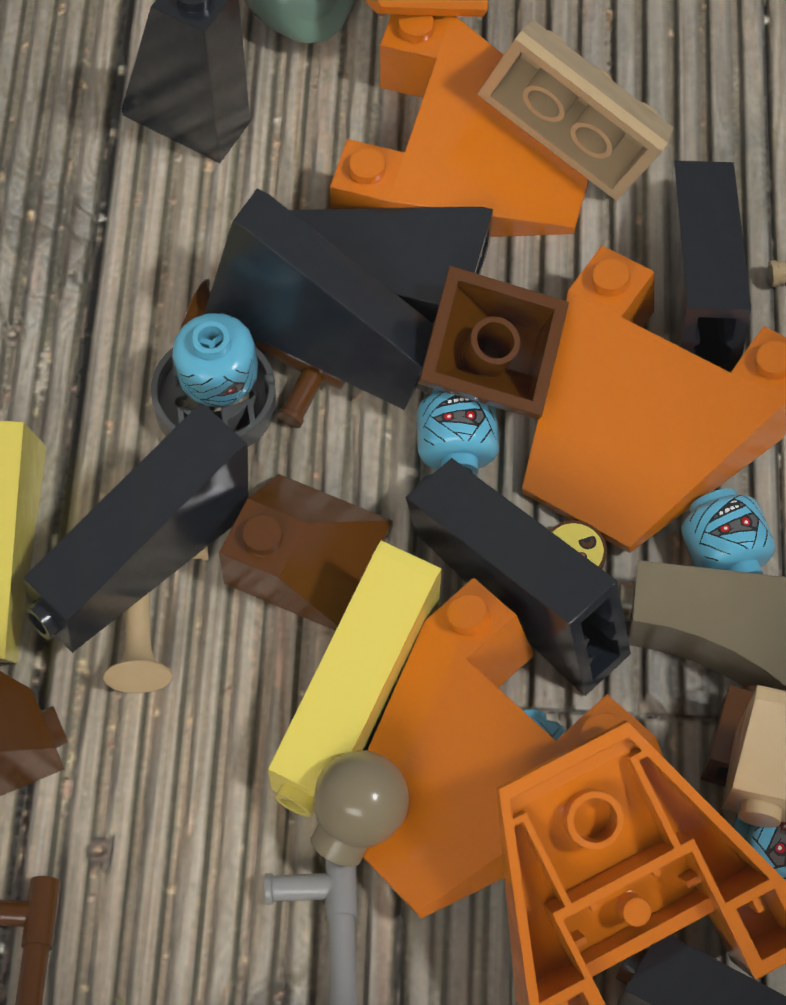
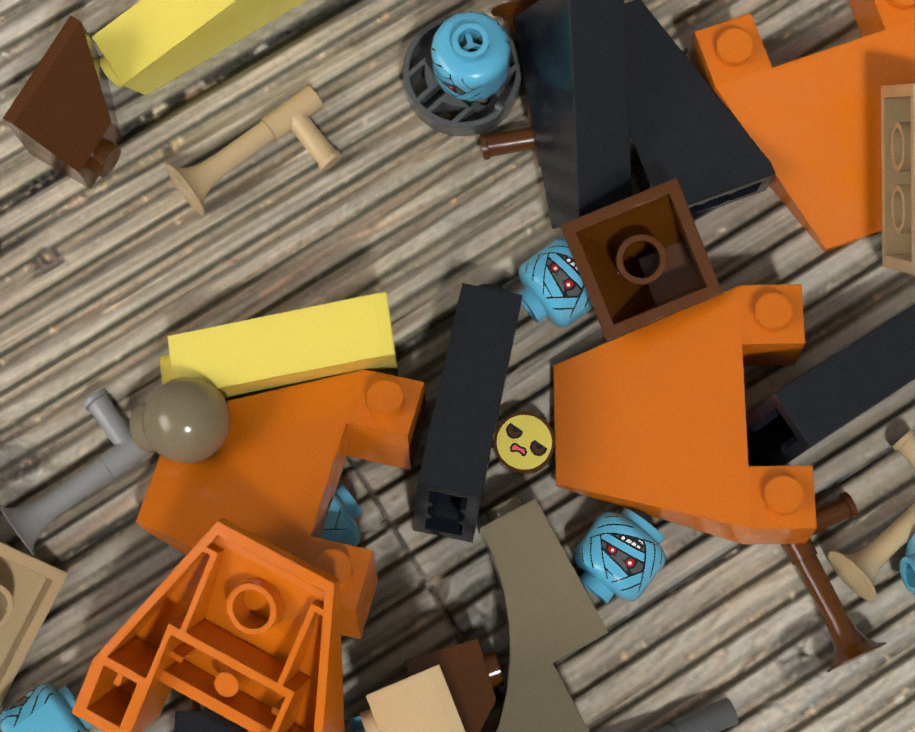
camera: 55 degrees right, 15 degrees up
(141, 530) = (280, 107): black slope -> none
(301, 549) = (381, 232): reddish brown slope -> none

